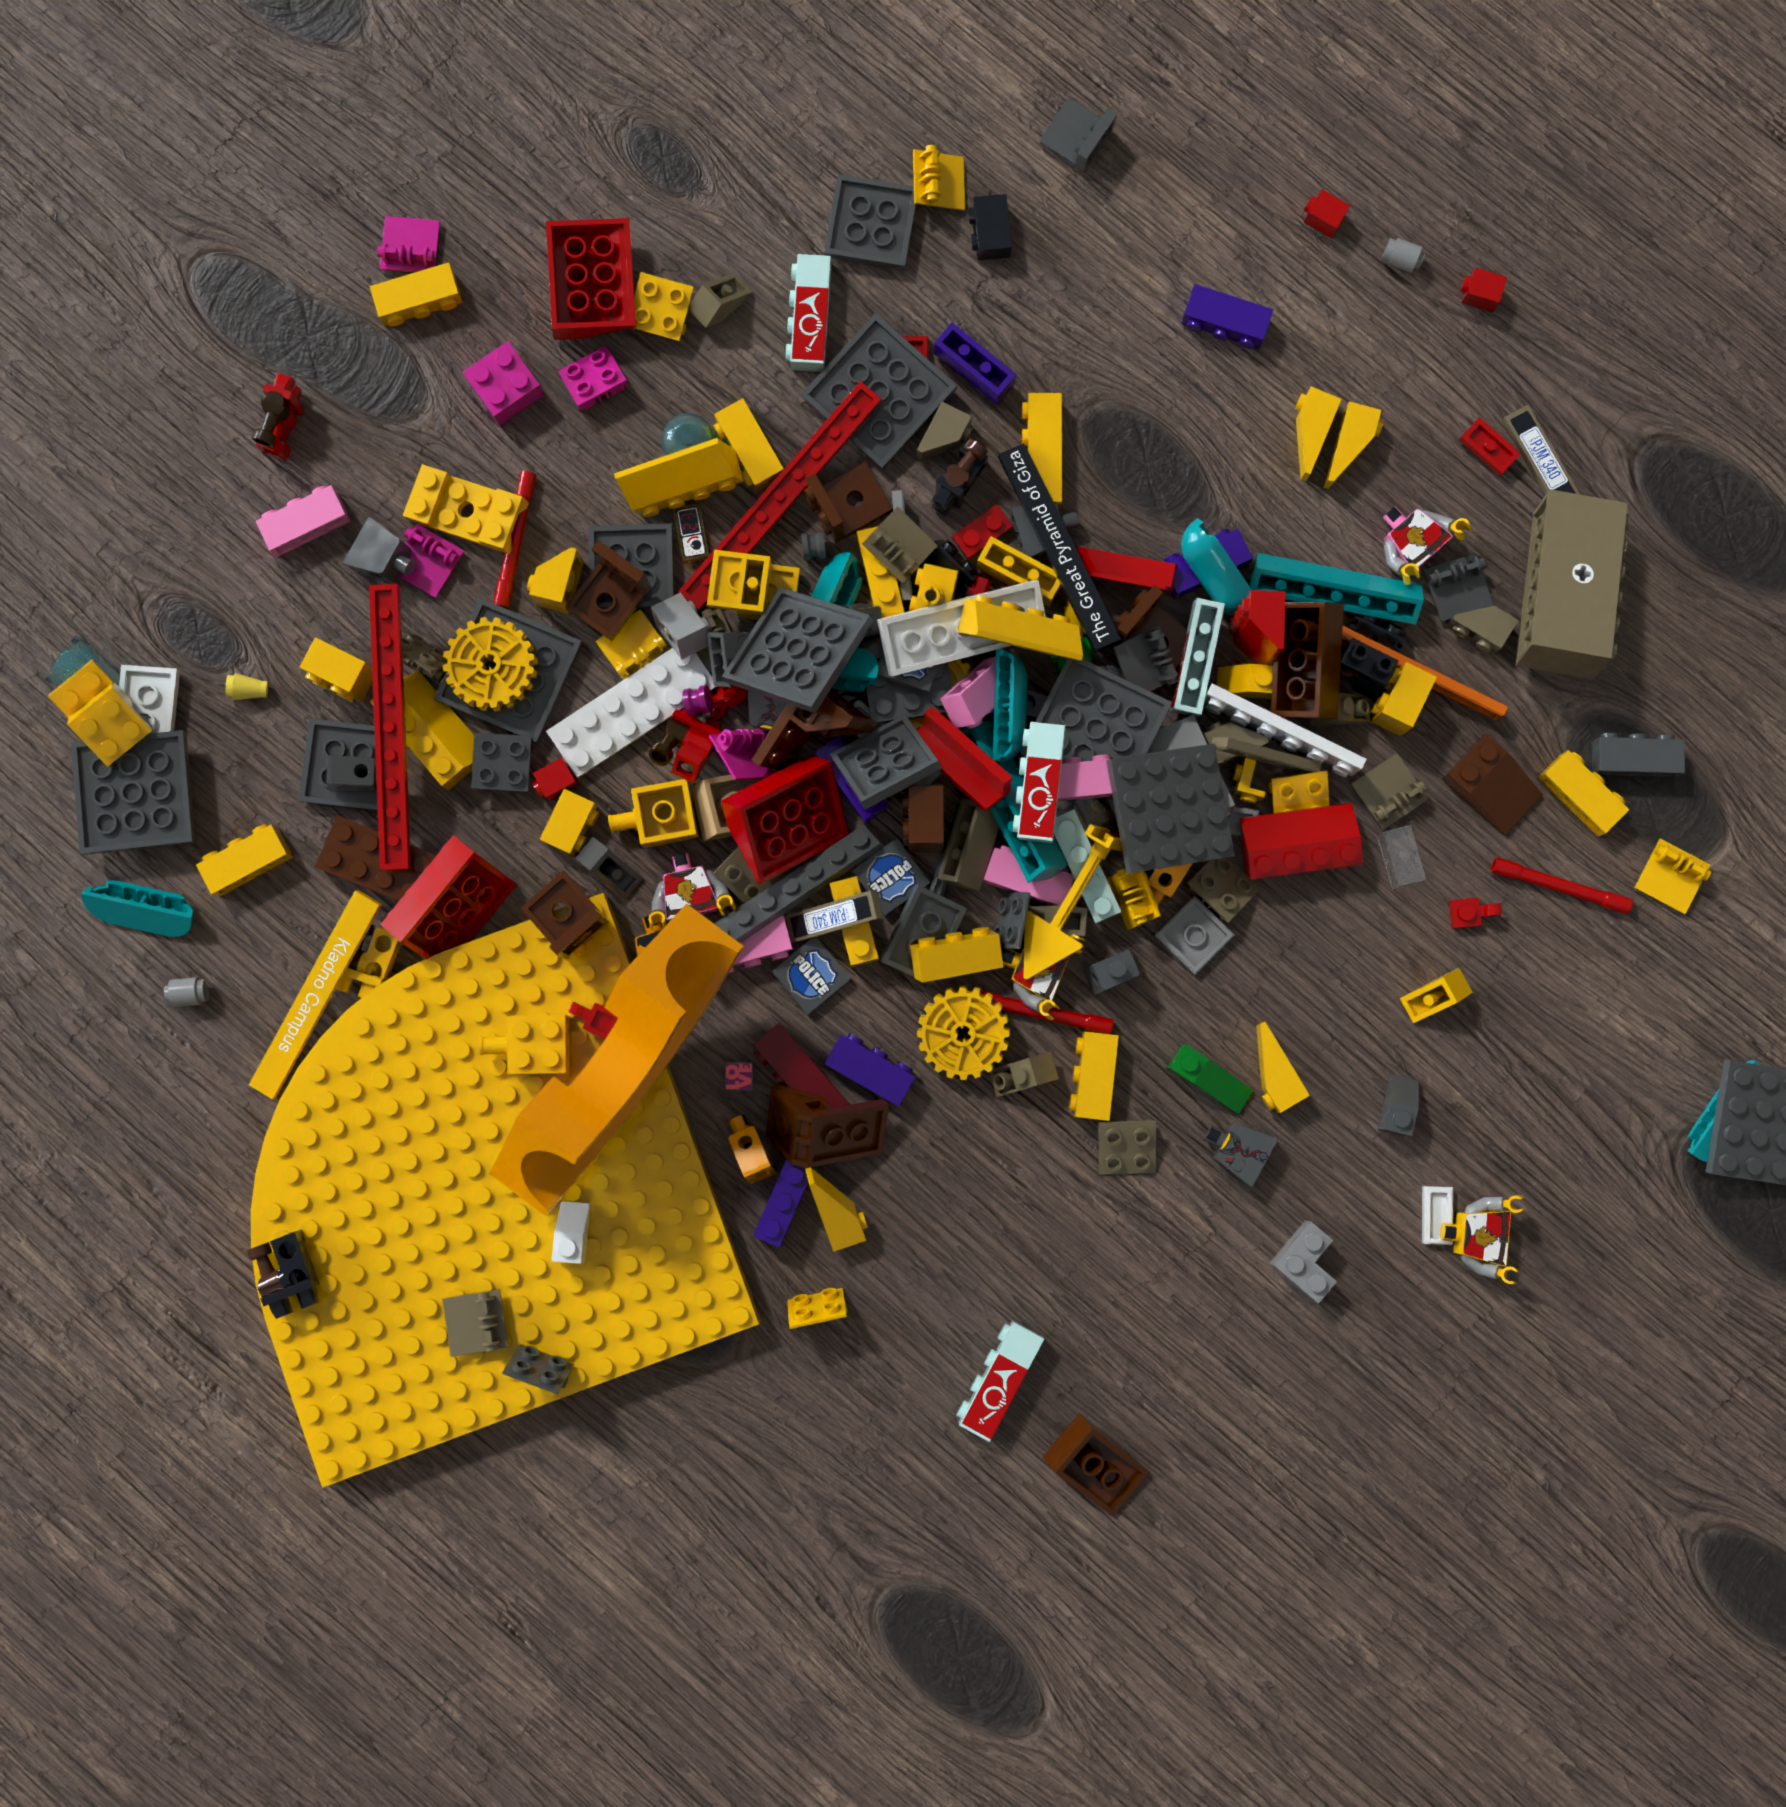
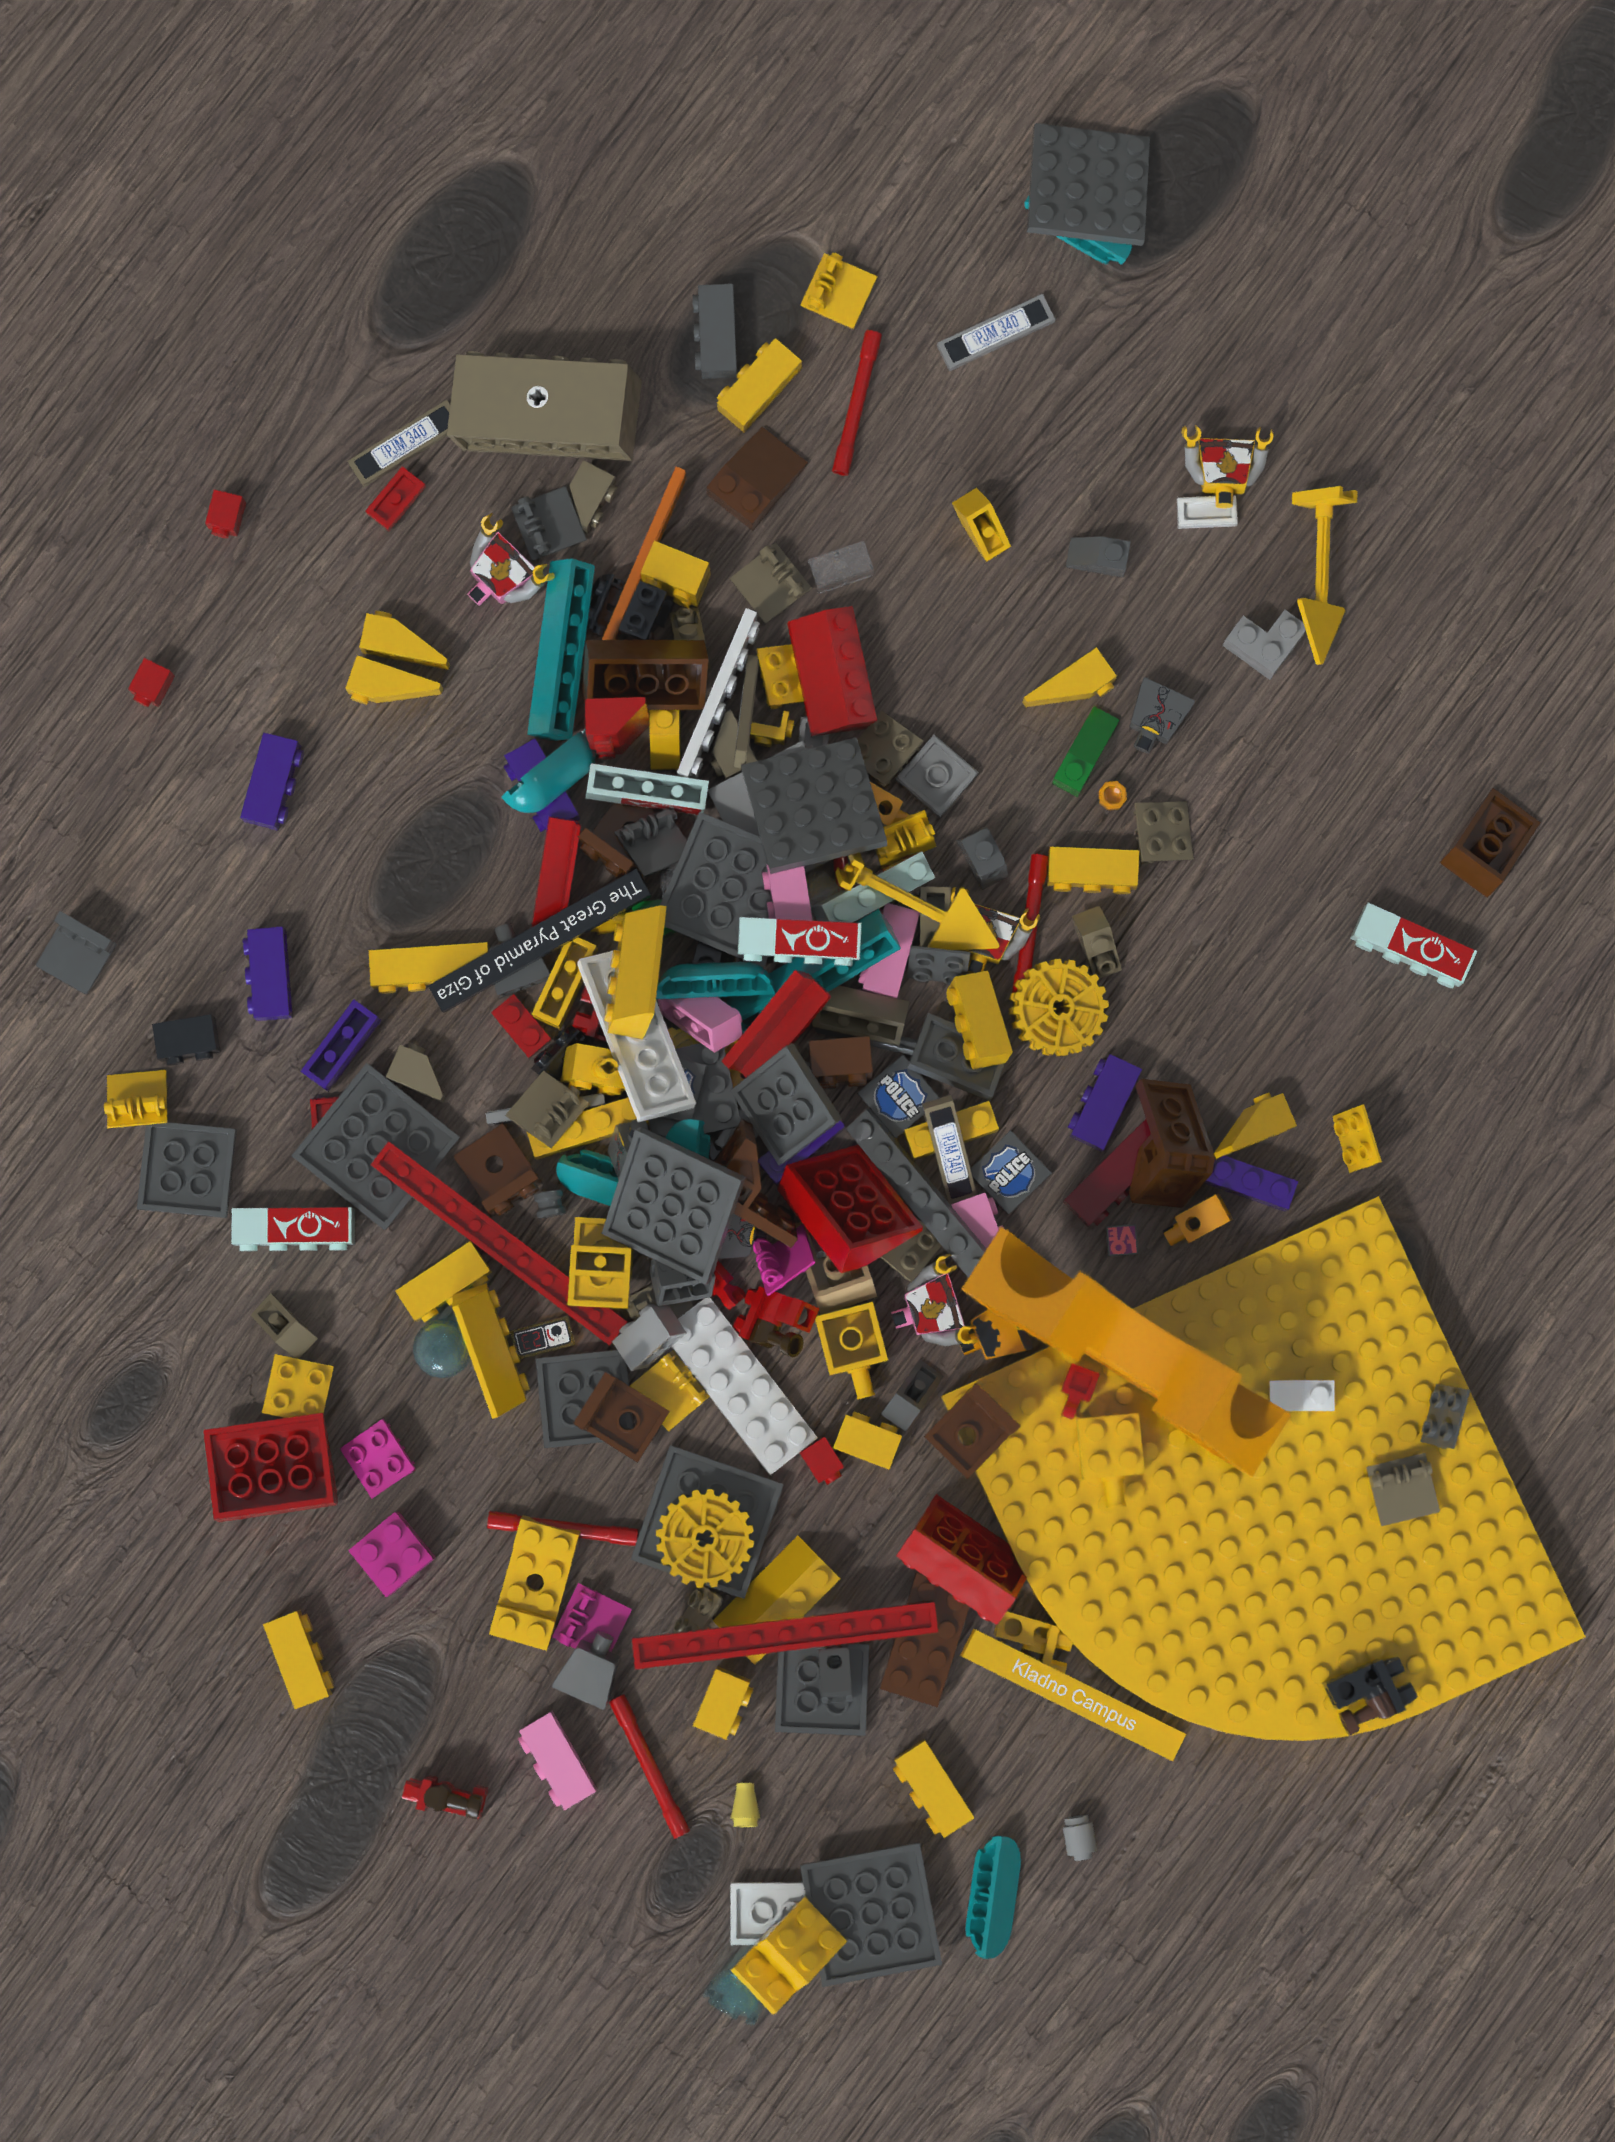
camera: 95 degrees left, 0 degrees up
(332, 587) = (627, 1720): none -> red piece
(408, 244) = (240, 1673): dark pink hinge -> none
(501, 762) = (808, 1519): dark grey hinge -> none
(556, 581) = (610, 1475): yellow slope -> none
(697, 700) = (729, 1311): magenta wheel -> none
(960, 477) = (469, 1052): hips -> none
(1046, 304) = (268, 974): none -> dark purple brick
(1165, 1101) = (1112, 795): none -> light orange tile
(1327, 1315) = (1318, 616): none -> yellow piece
(1403, 254) = (192, 599): light grey brick -> none
(1468, 912) = (891, 496): red plate -> none
(1624, 1024) = (996, 332): none -> tile

